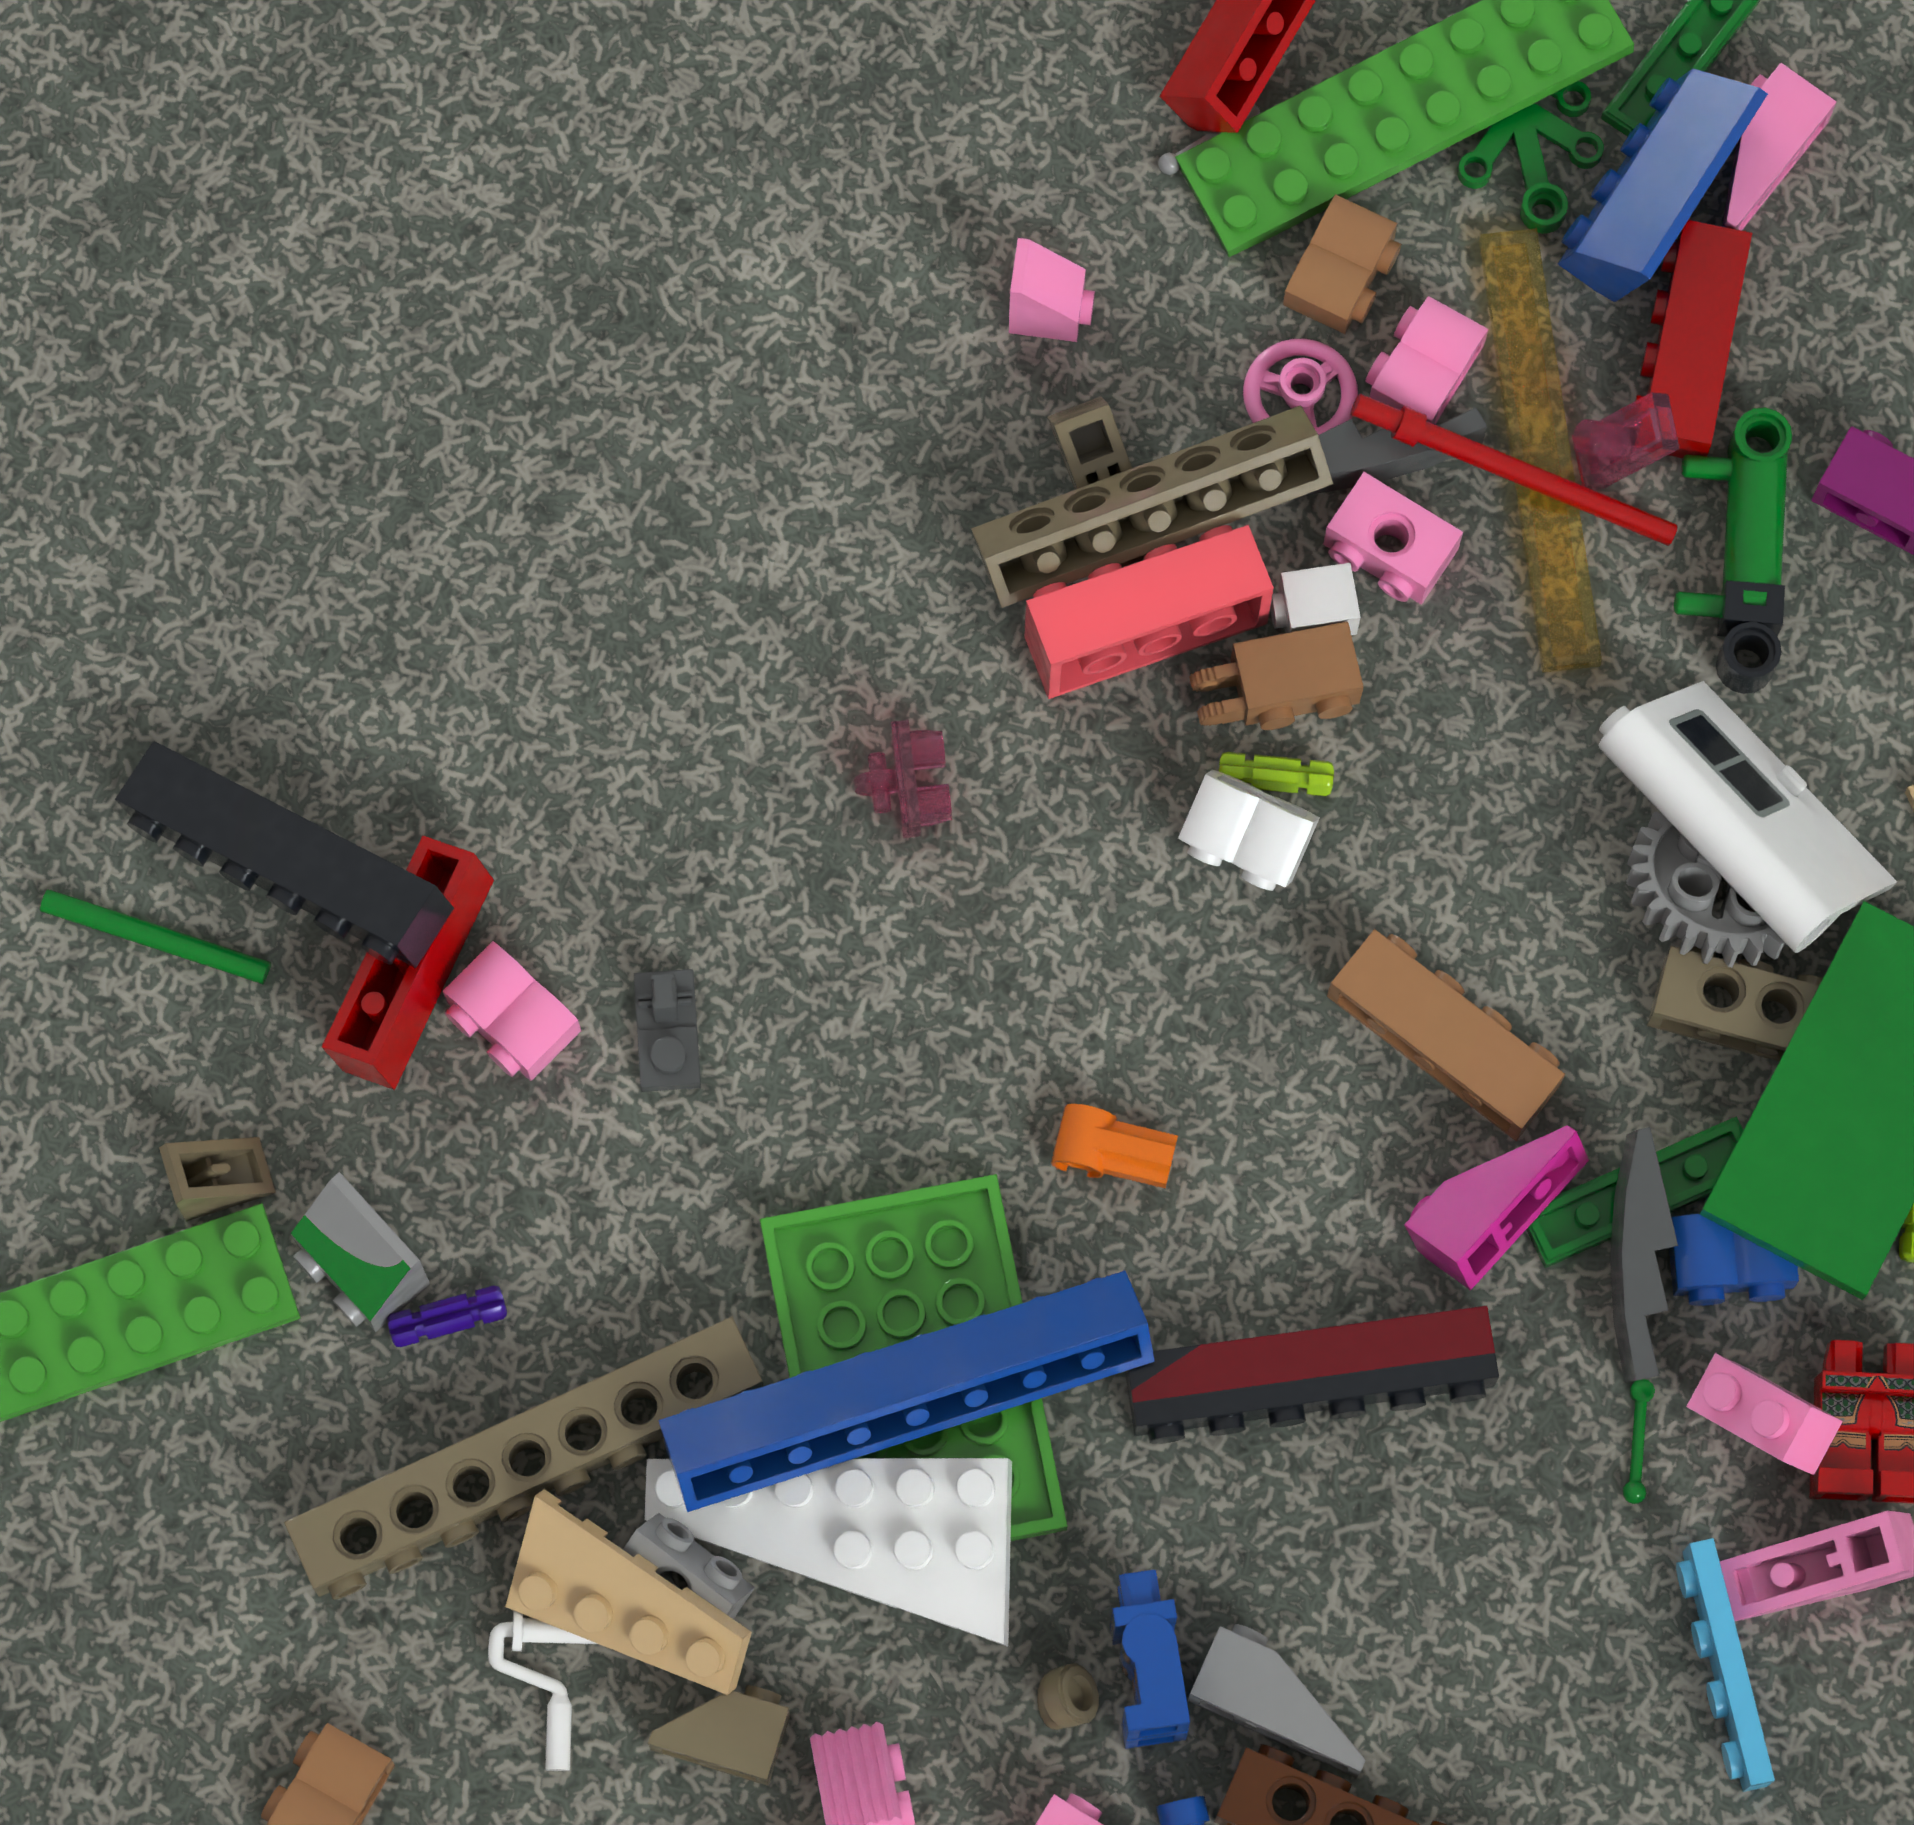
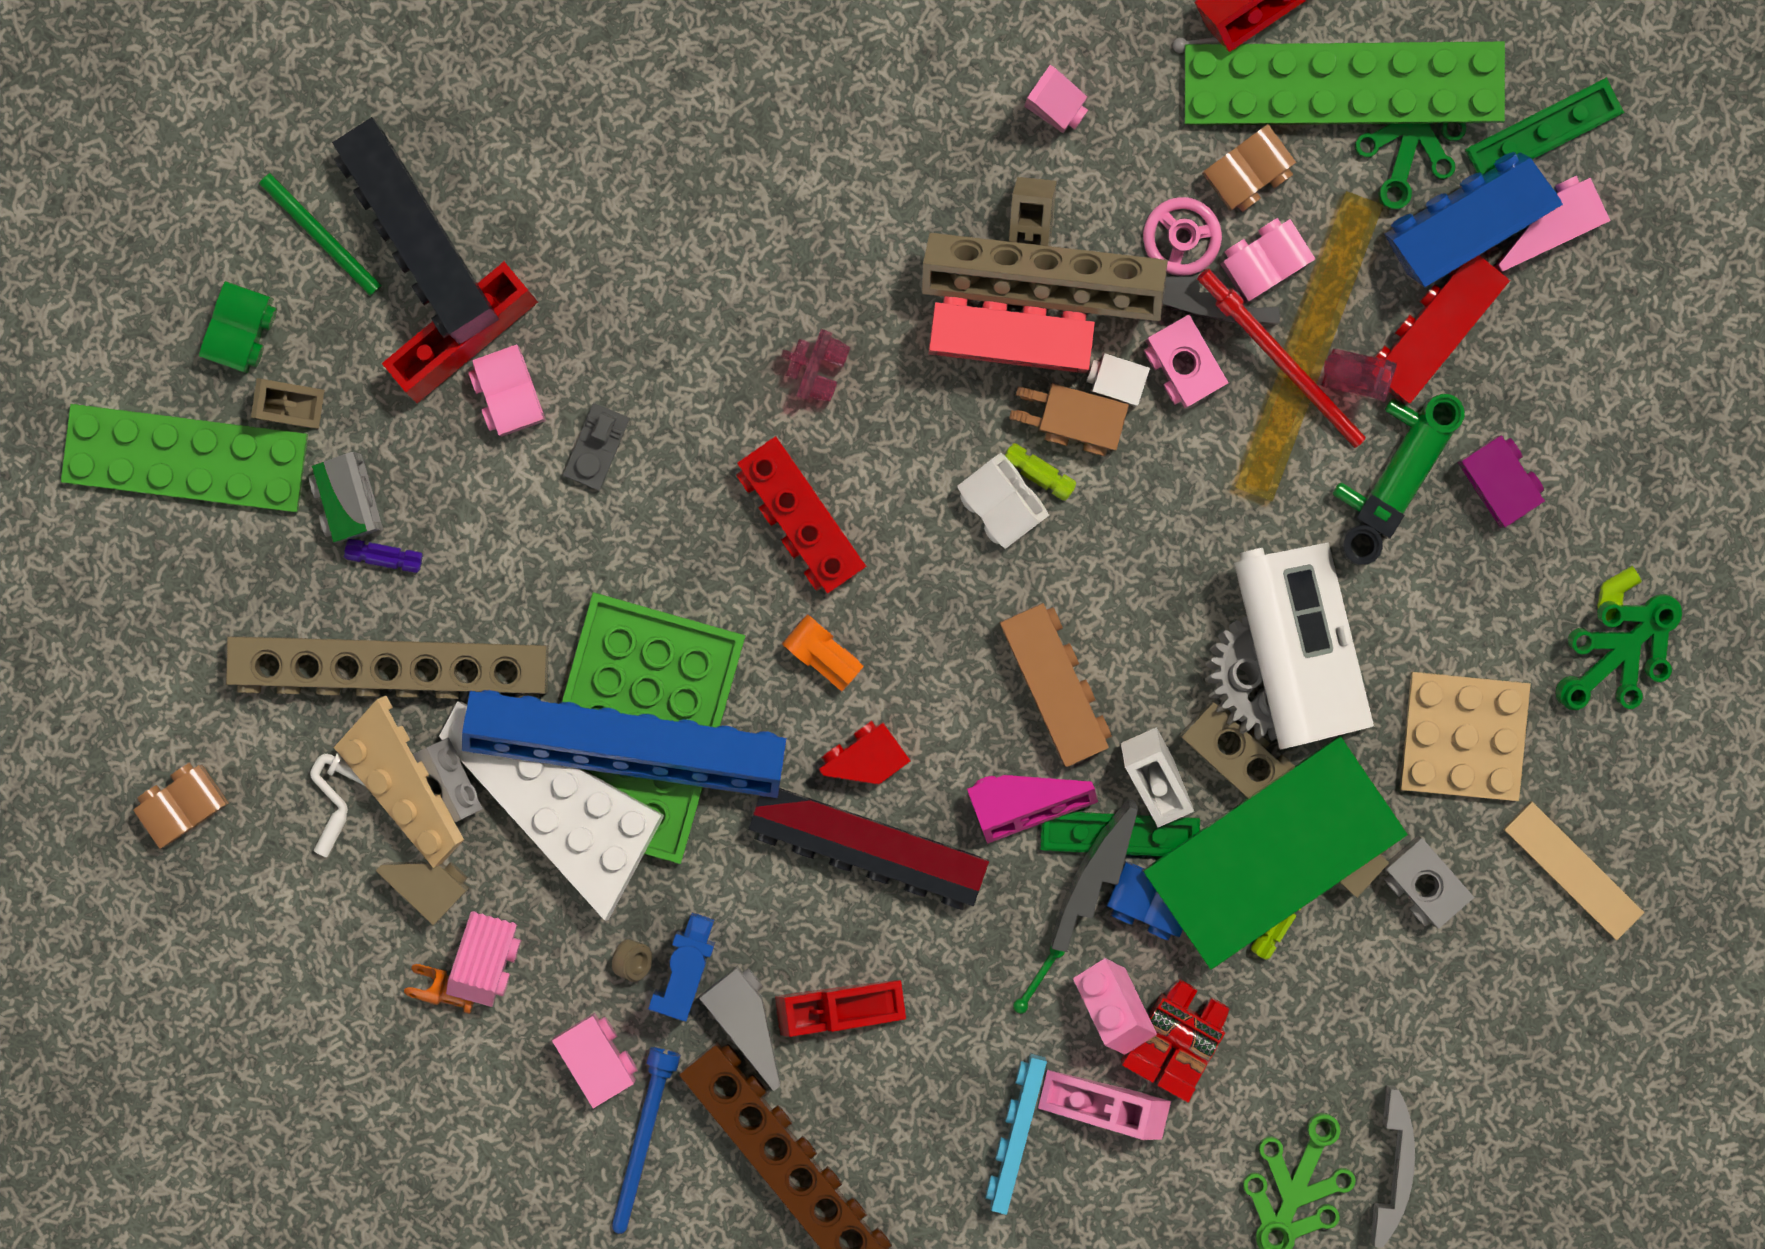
camera: 30 degrees right, 15 degrees up
(100, 1107) = (237, 327): none -> green brick
(988, 980) = (800, 514): none -> red brick
(1251, 1254) = (868, 759): none -> red slope
(1389, 1617) = (840, 1008): none -> red slope
(1650, 1086) = (1156, 777): none -> white slope

